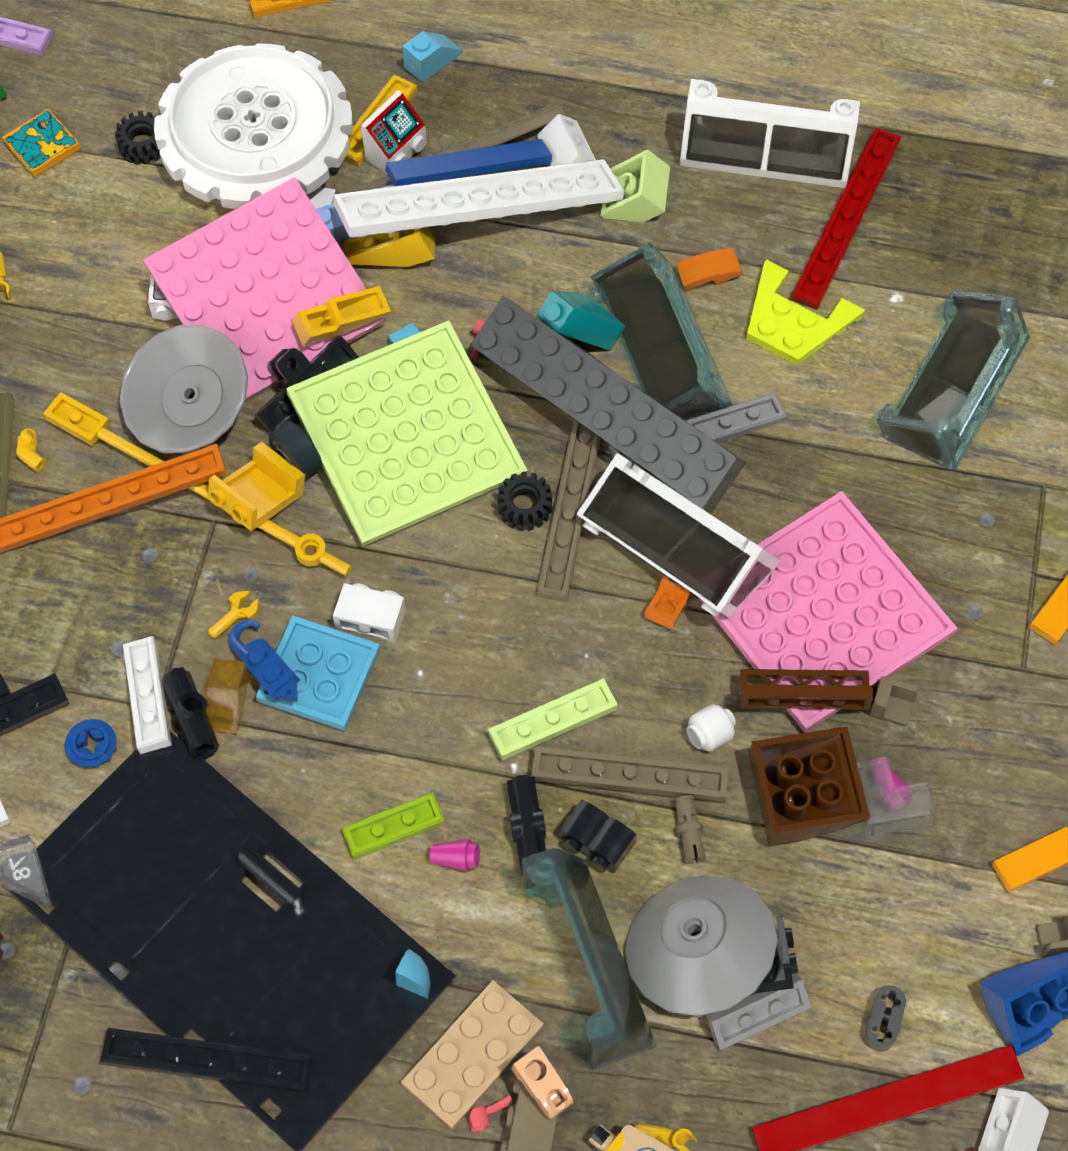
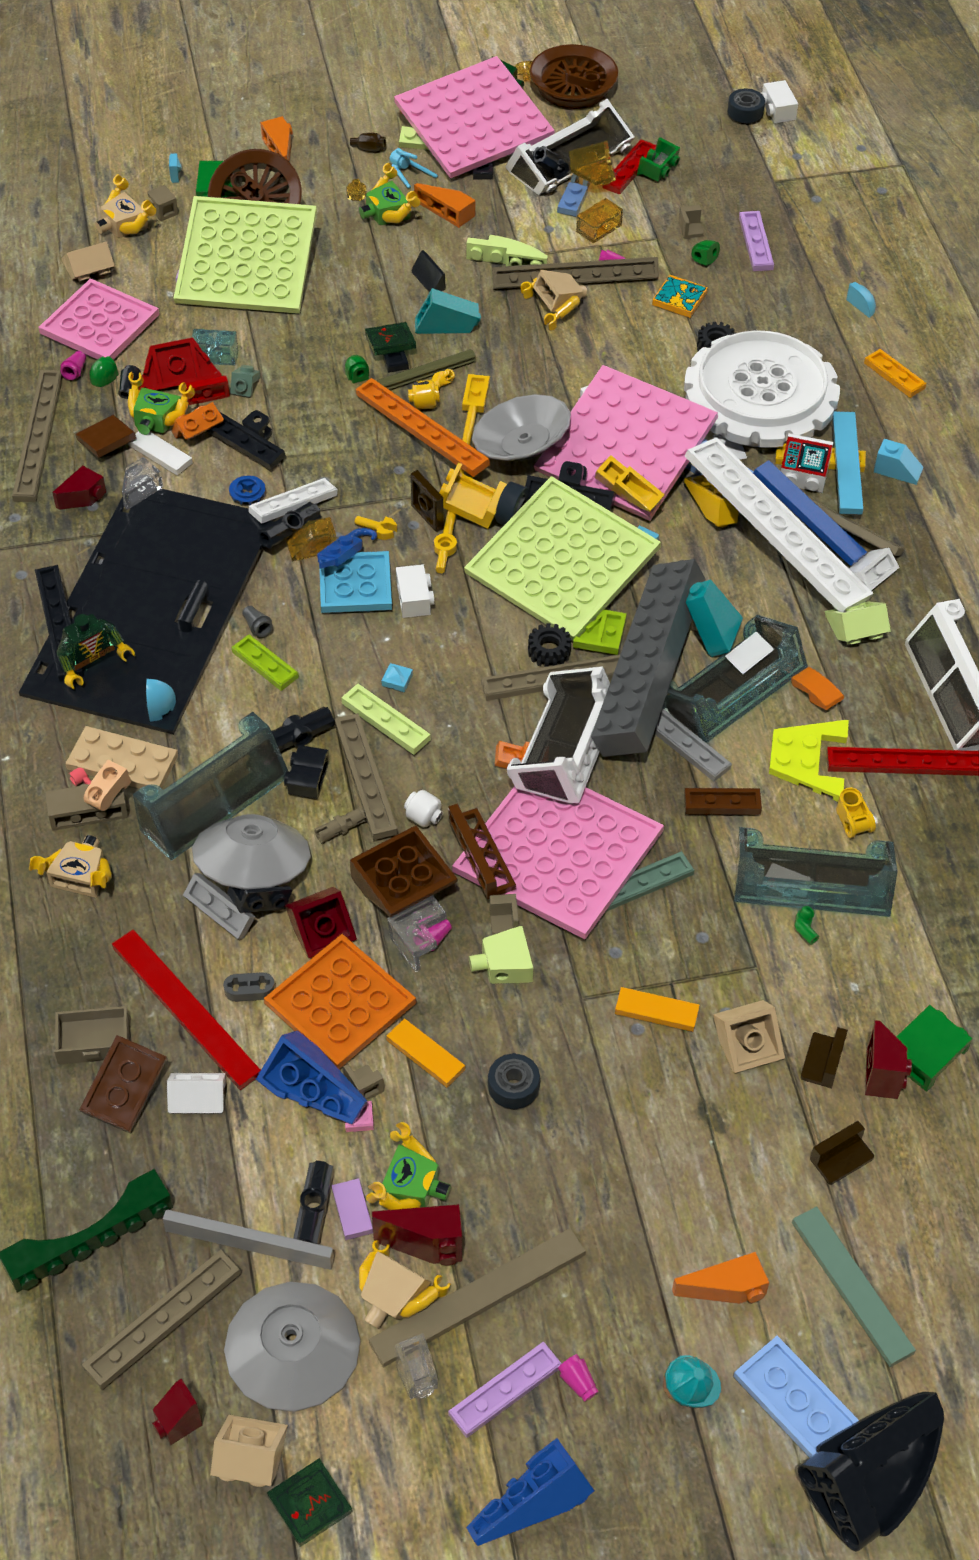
camera: 65 degrees right, 10 degrees down
(50, 475) = (424, 394): none -> yellow head
(241, 539) = (427, 501): none -> dark brown tile
(285, 1032) = (85, 643): none -> clear green torso
(326, 810) = (258, 622): none -> dark grey cone
(426, 103) = (847, 463): none -> medium azure tile
(456, 854) = (258, 700): dark pink cone -> none
(491, 683) = (397, 677): none -> medium azure tile
(534, 437) = (603, 633): none -> lime wing
(633, 308) = (749, 652): none -> white sticker
(824, 423) = (723, 801): none -> reddish brown plate
(826, 901) = (320, 920): none -> dark red slope
(893, 524) = (653, 878): none -> sand green tile
(894, 309) = (854, 817): none -> yellow piece
(945, 922) = (340, 1000): none -> orange plate
(952, 722) = (505, 958): none -> yellowish green torso
(1011, 419) = (803, 924): none -> green arm

